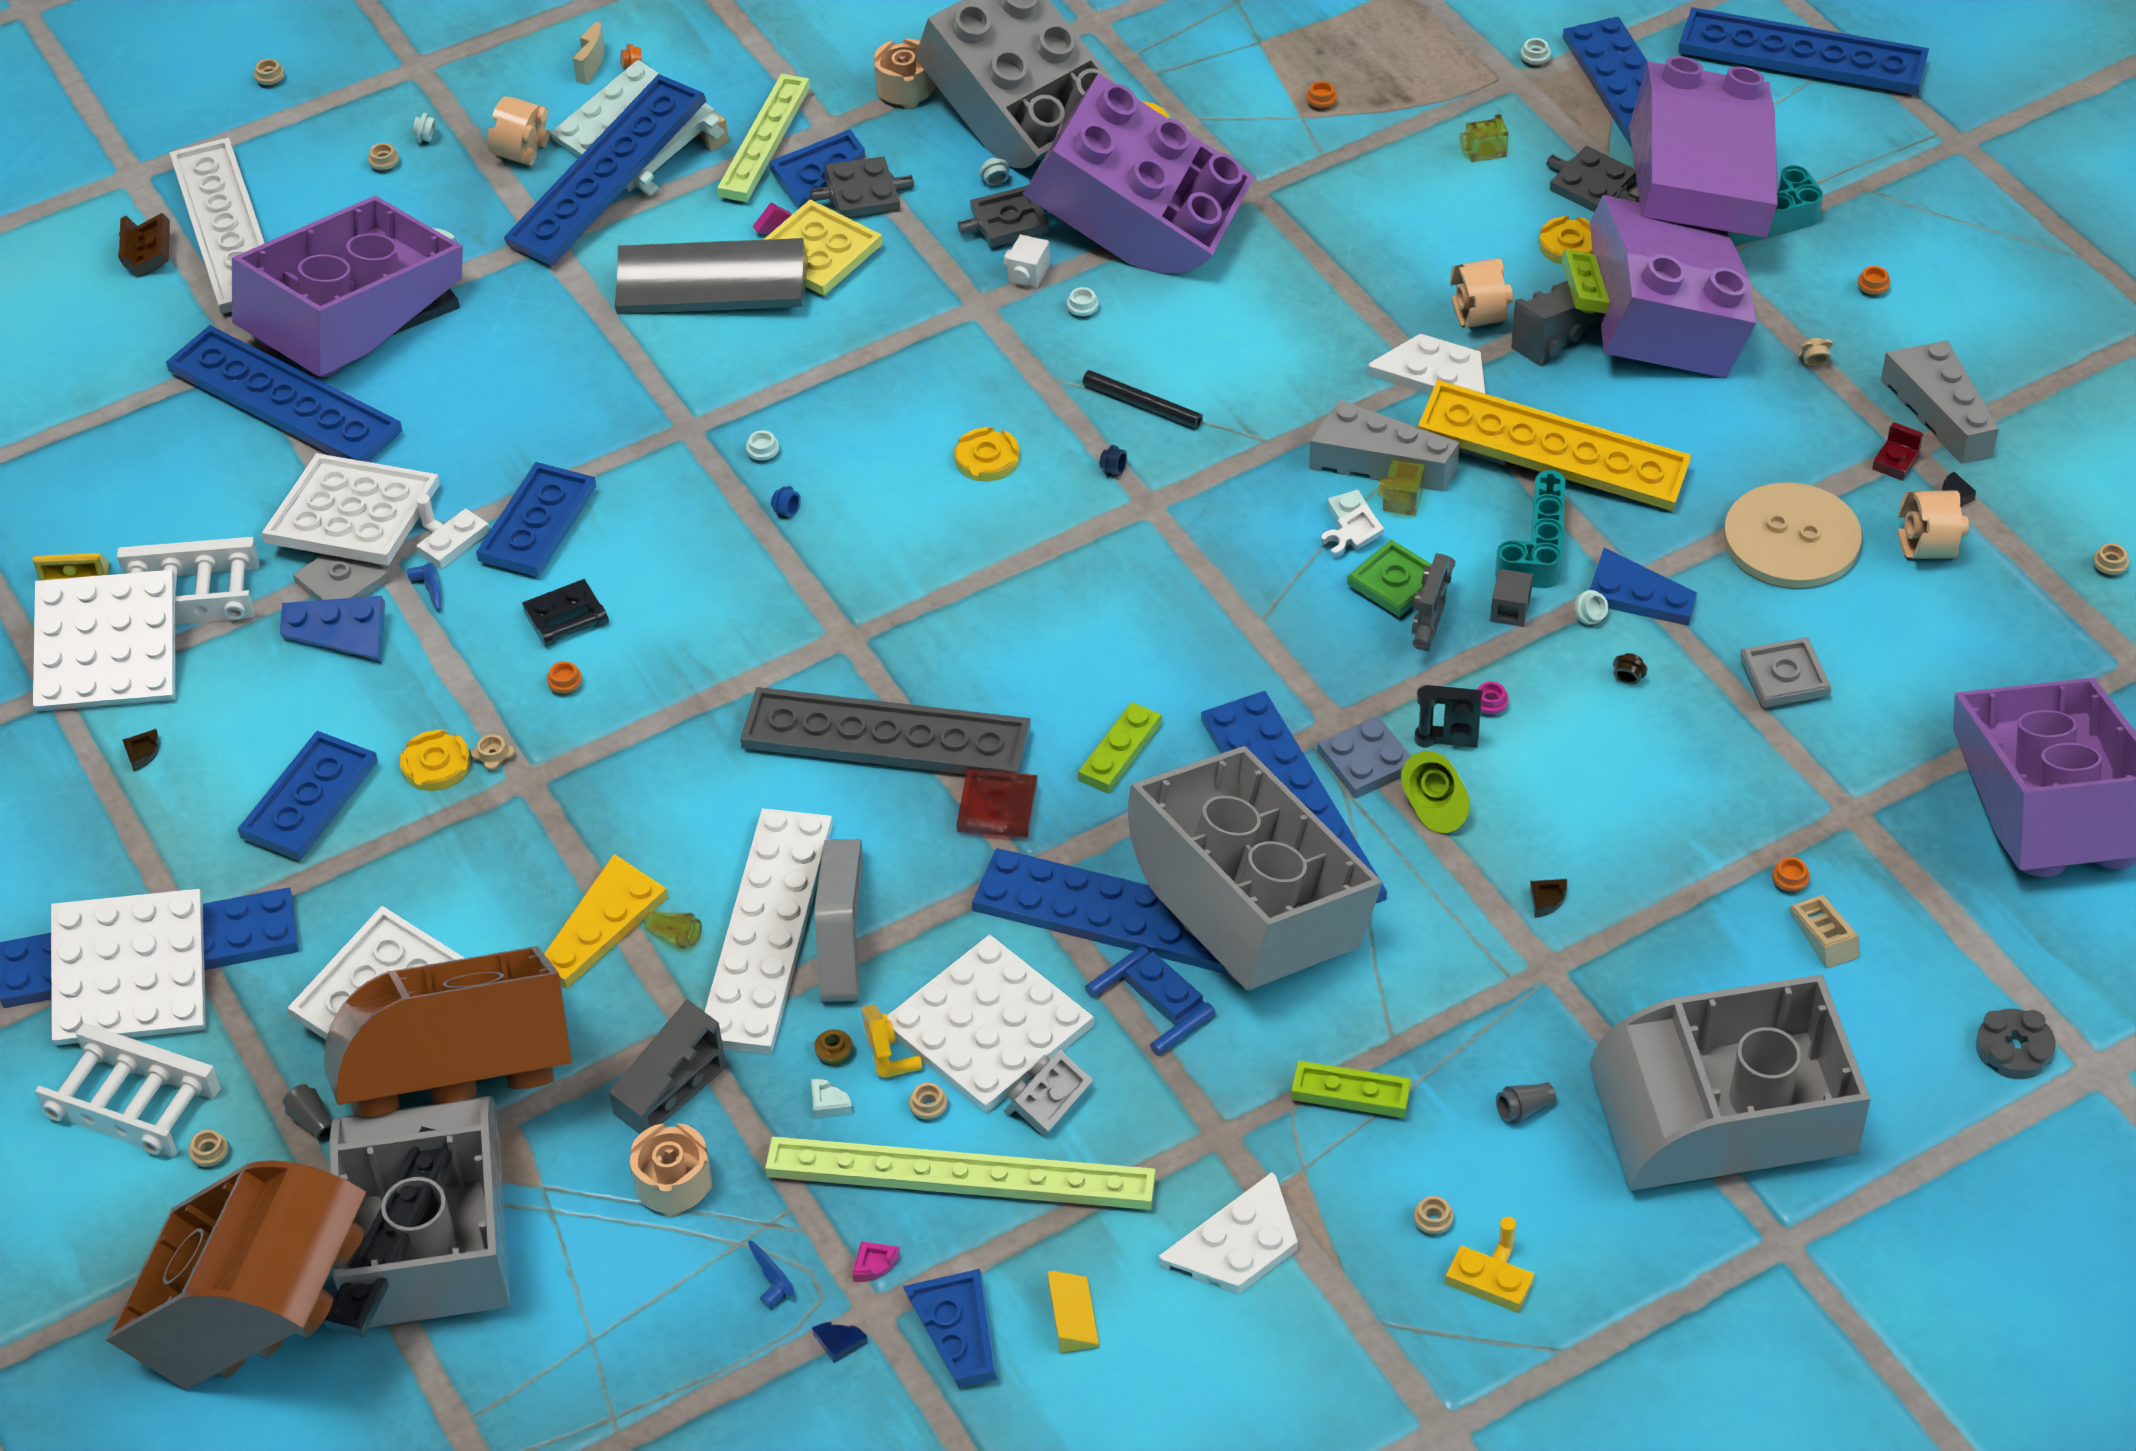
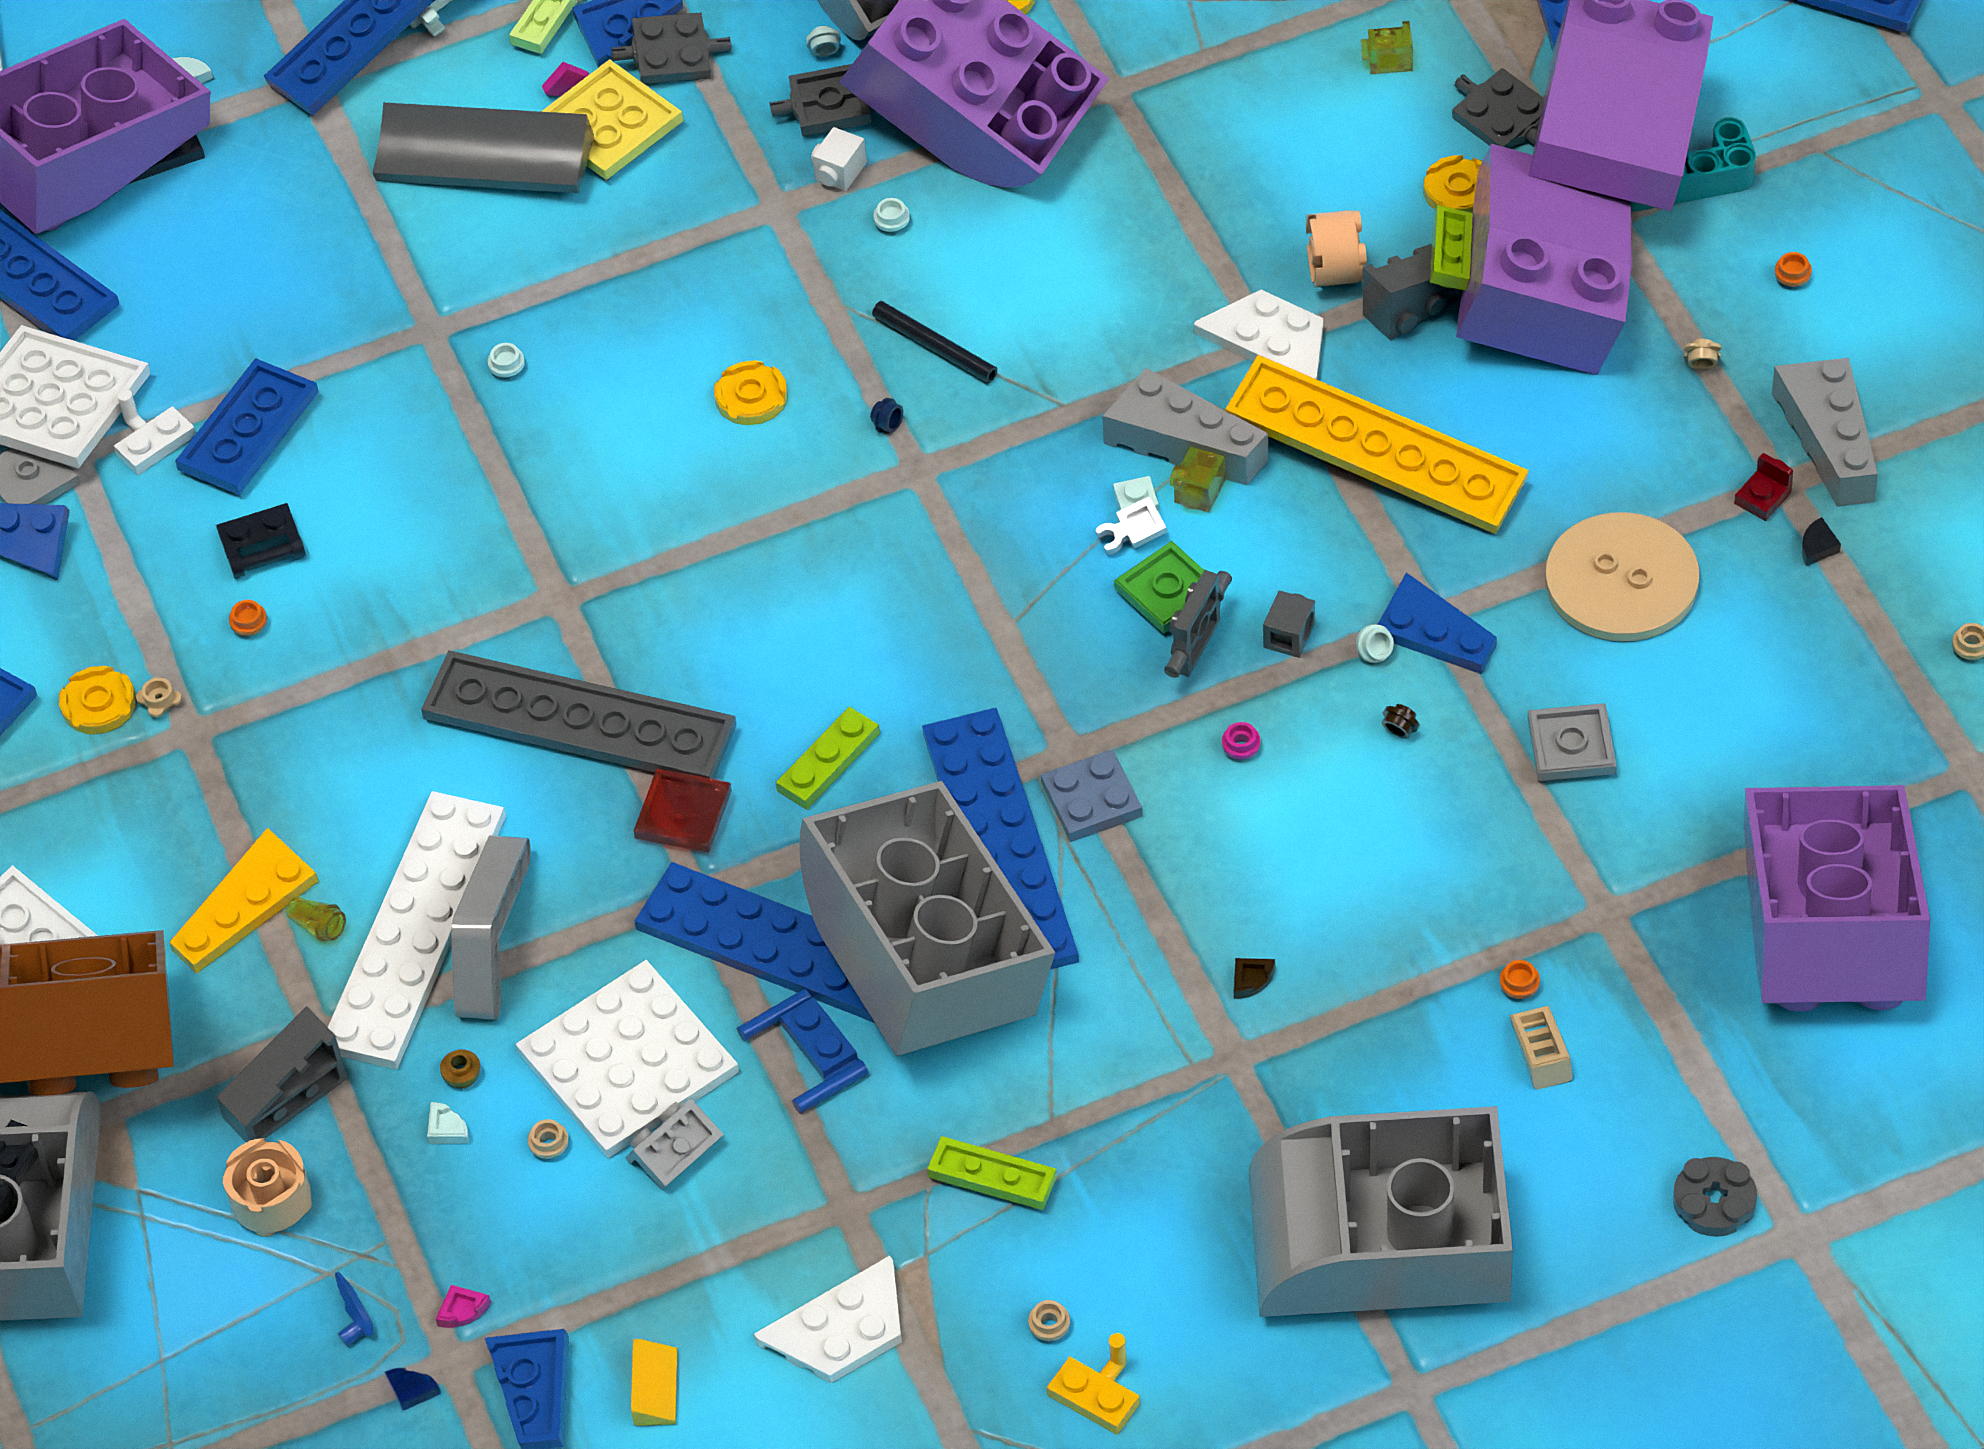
camera: 10 degrees right, 5 degrees up
(429, 574) = (123, 481): blue bar -> none
(785, 501) = (519, 431): blue plate -> none
(879, 1037) = (505, 1061): yellow plate -> none
(961, 1173) = (567, 1222): yellowish green plate -> none
(1435, 791) = (1153, 845): lime piece -> none
(1460, 716) = (1196, 759): black plate -> none
(1522, 1101) = (1169, 1206): dark grey cone -> none
(1544, 552) = (1336, 578): teal beam -> none
(1932, 524) = (1775, 582): light nougat brick -> none

